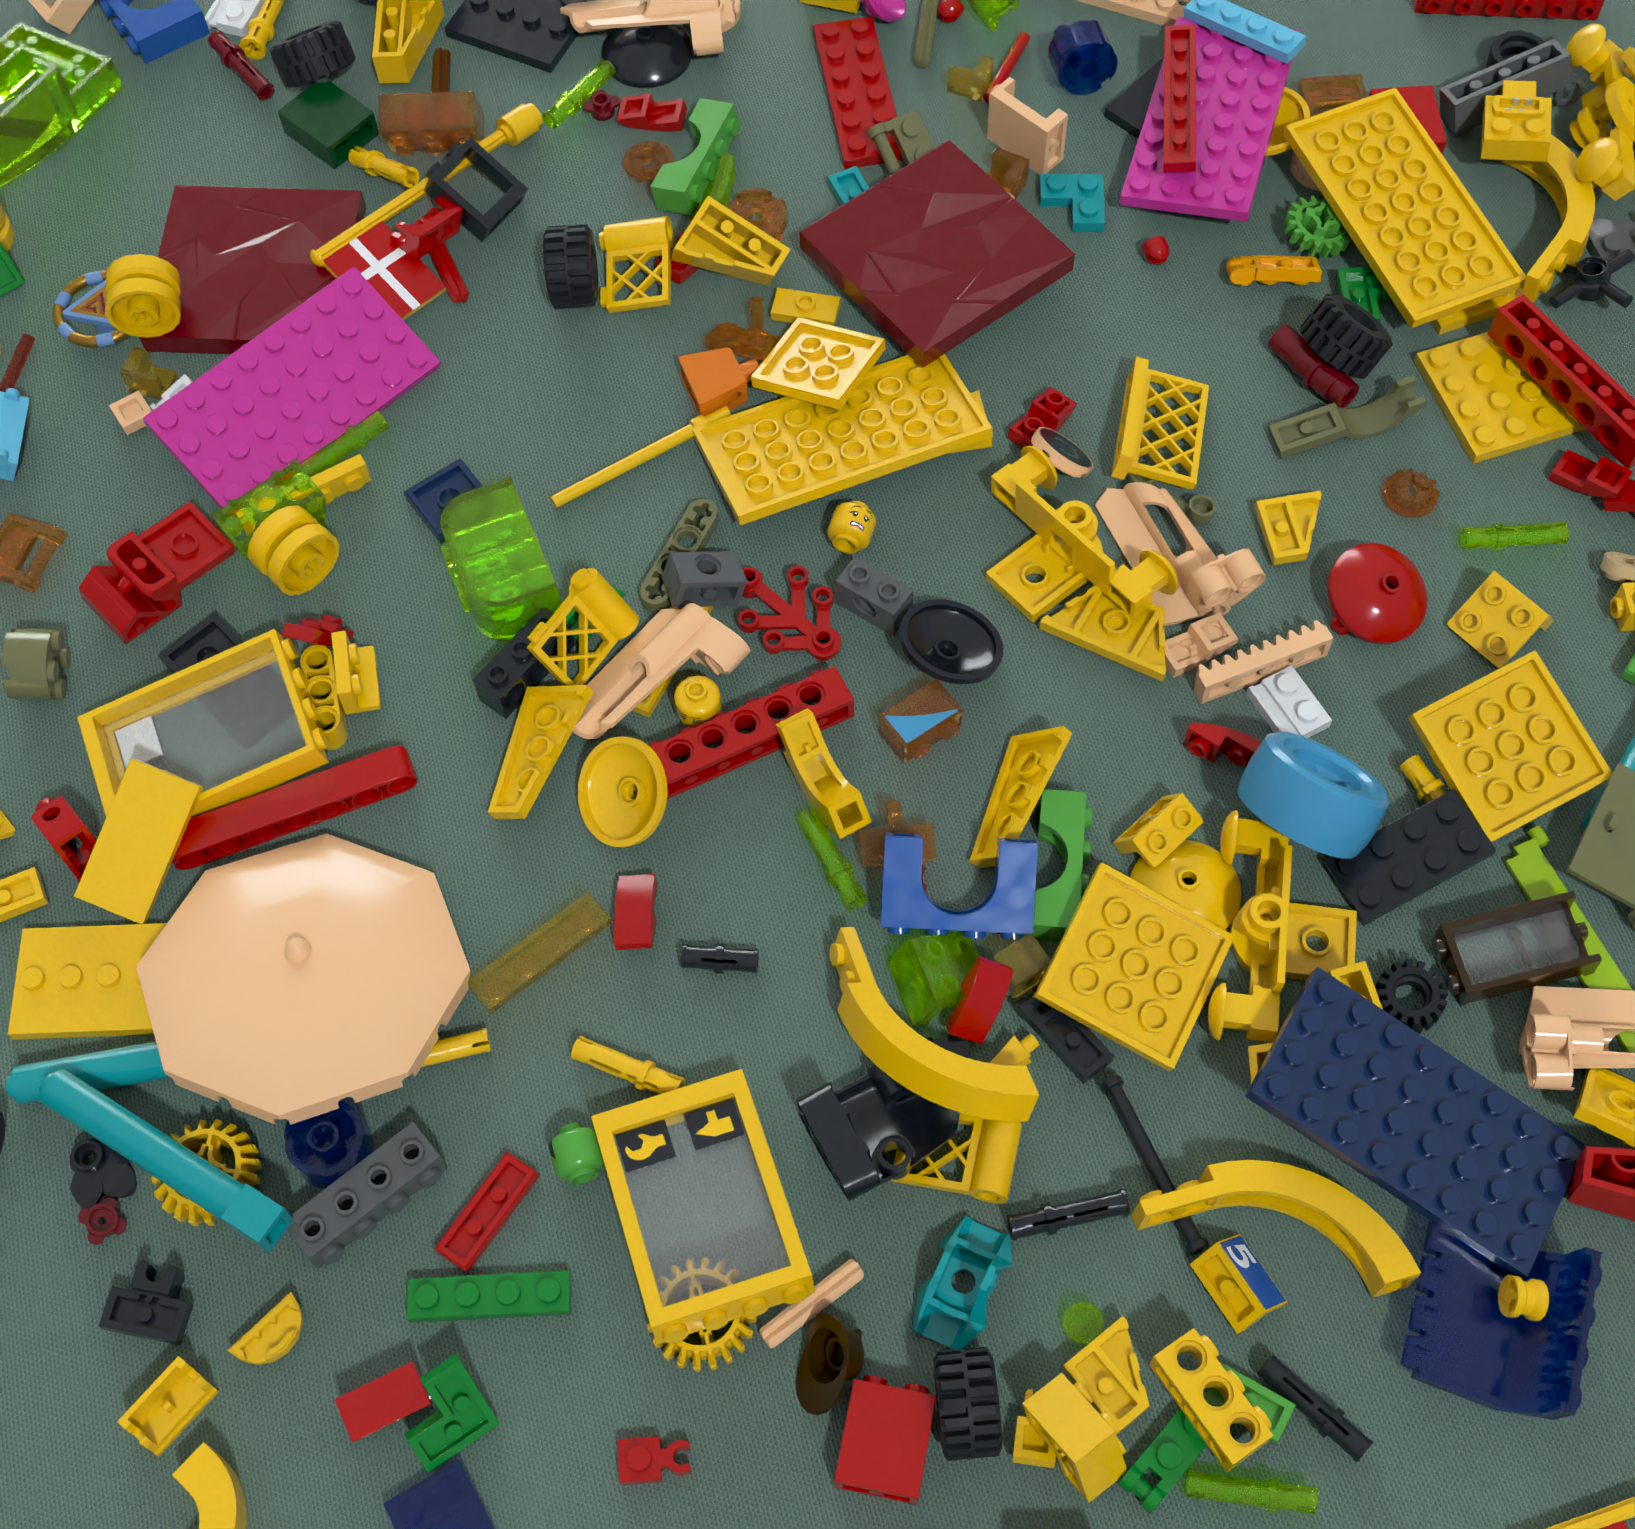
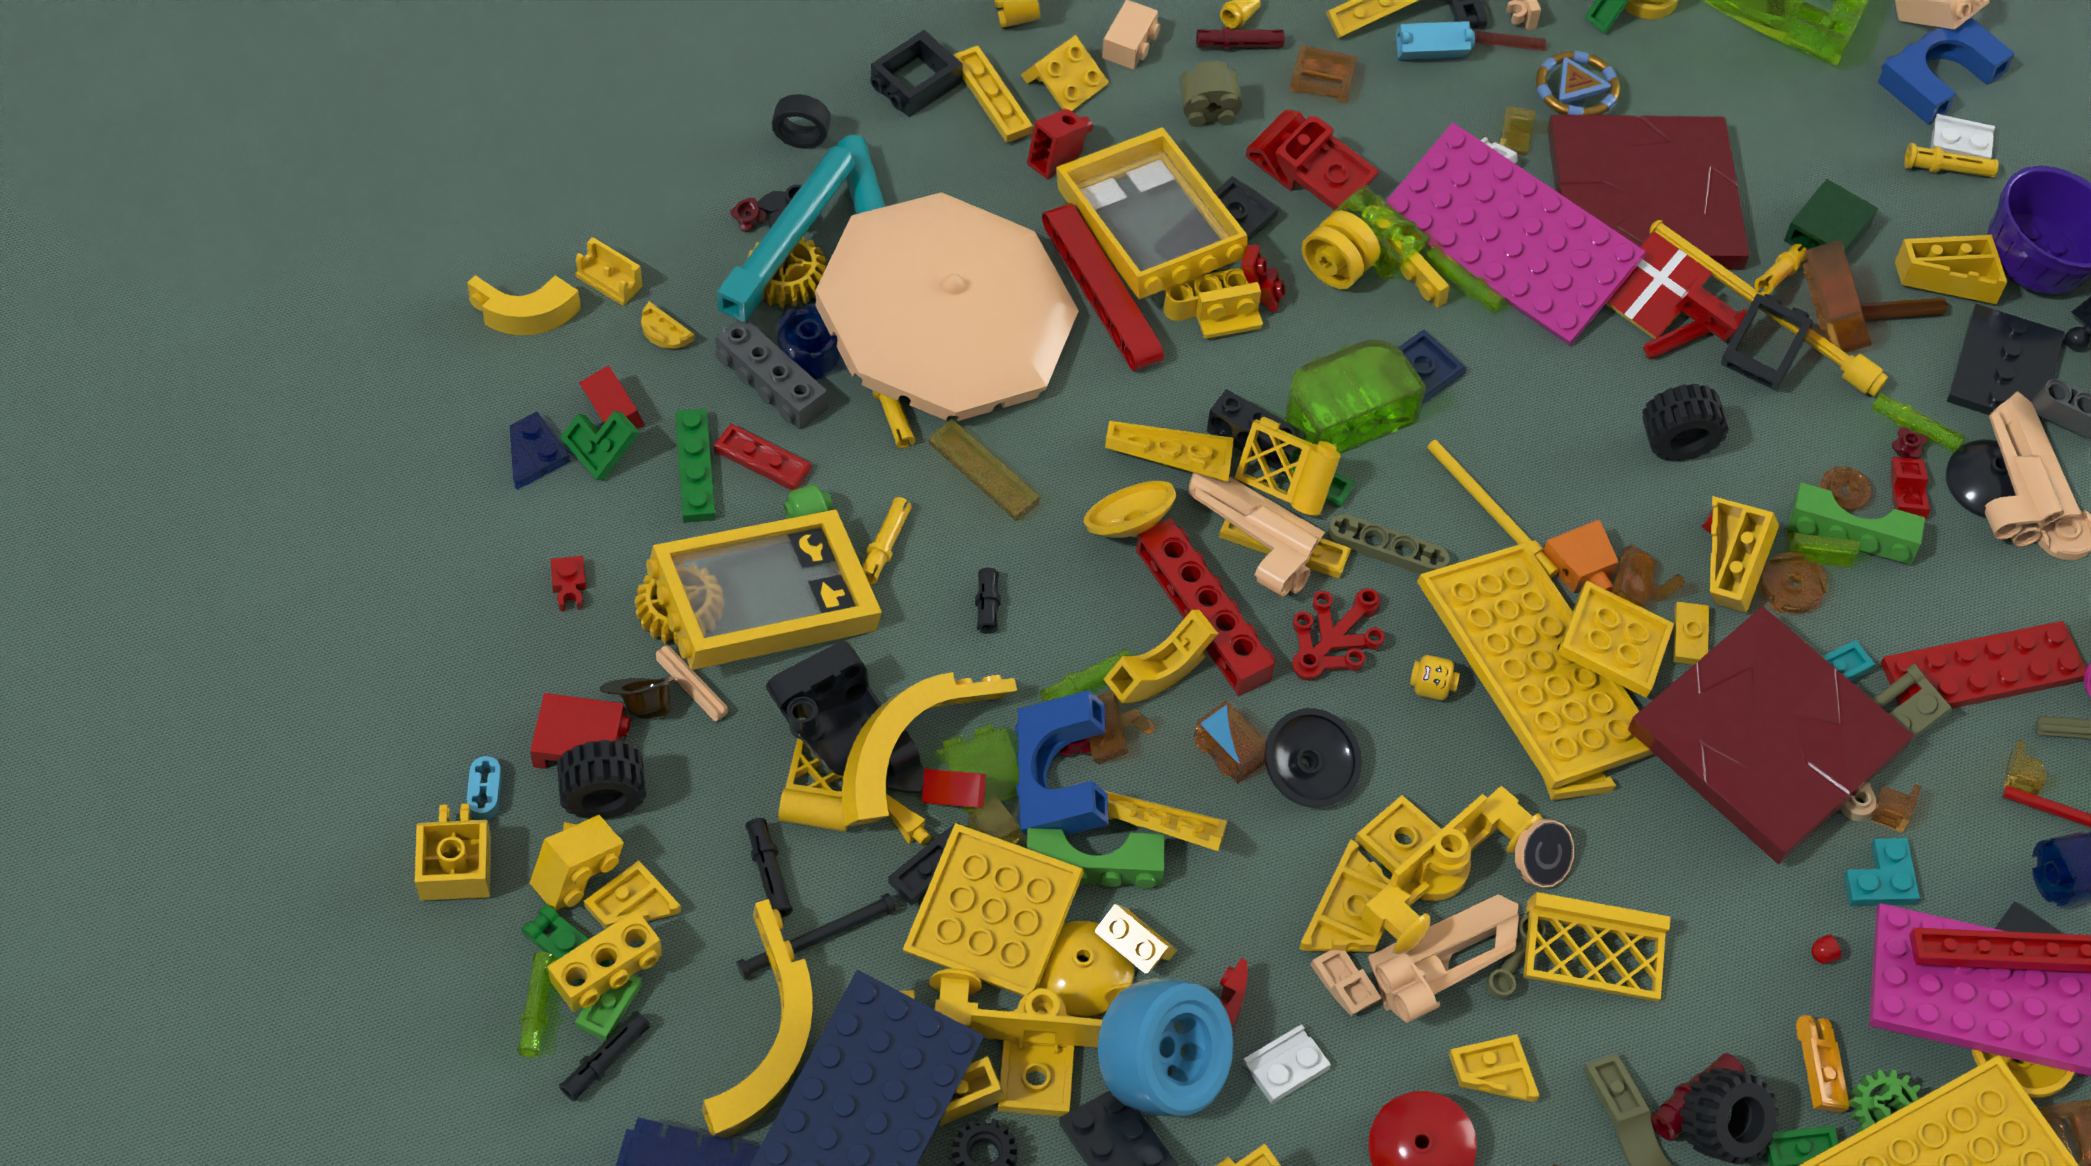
camera: 80 degrees right, 5 degrees down
(81, 982) = (942, 163): yellow plate -> none
(130, 412) = (1476, 123): light nougat plate -> none
(138, 841) = (1054, 182): yellow tile -> none
(143, 295) = (1578, 101): yellow wheel -> none
(150, 1307) = (684, 249): black plate -> none
(234, 57) = (1895, 143): dark red pin -> none
(312, 54) = (1898, 194): black tyre -> none
(634, 912) = (1018, 532): red slope -> none
(637, 243) = (1733, 472): yellow piece -> none
(697, 700) = (1230, 563): yellow head -> none
(704, 578) = (1349, 572): dark grey brick -> none
(873, 595) = (1361, 695): dark grey brick -> none
(957, 1317) = (688, 779): teal piece -> none
(1024, 131) = (1942, 830): light nougat panel -> none
(1047, 410) = (1595, 848): red slope -> none
(1083, 1322) = (677, 880): clear neon green plate -> none
(1238, 1282) = (714, 1002): yellow panel -> none
(1262, 662) = (1328, 1036): light nougat gear -> none

